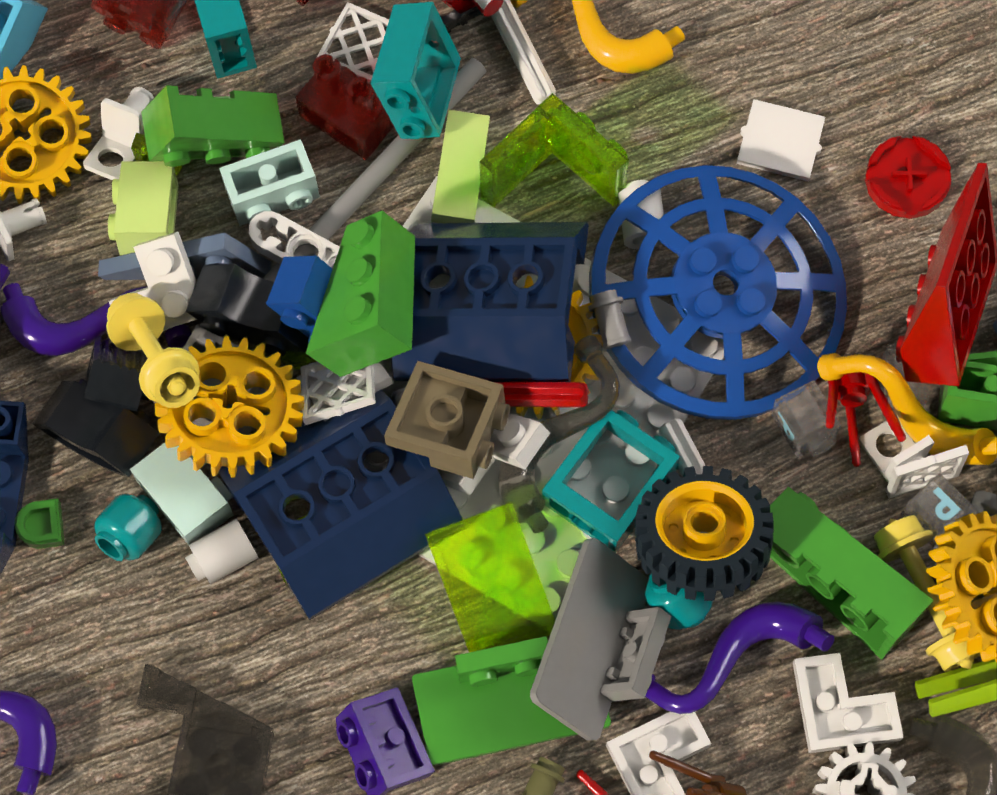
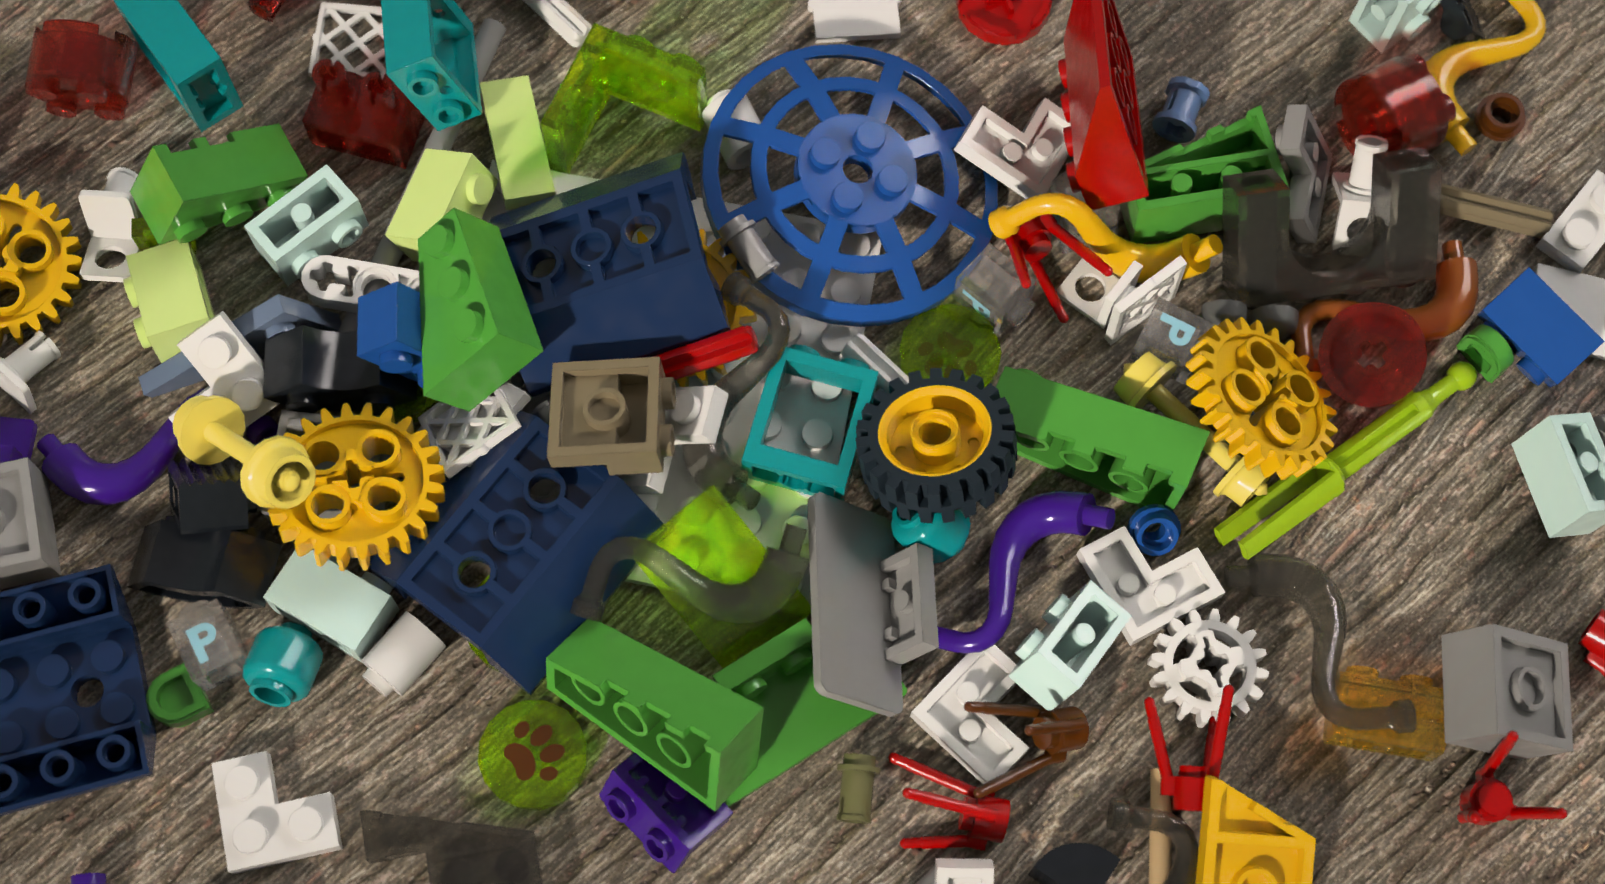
camera: 25 degrees left, 0 degrees up
(66, 649) = (262, 830): none -> white plate
(77, 490) = (208, 643): none -> clear brick
(295, 668) = (533, 755): none -> clear neon green tile
(385, 186) = (439, 184): none -> yellowish green brick
(403, 668) = (659, 710): none -> bright green wedge
(497, 605) = (728, 602): none -> clear smoke animal
(754, 450) = (950, 340): none -> clear neon green tile
(754, 735) = (1069, 646): none -> light aqua brick
(863, 315) = (1017, 158): none -> white plate
(864, 675) = (1161, 540): none -> blue plate

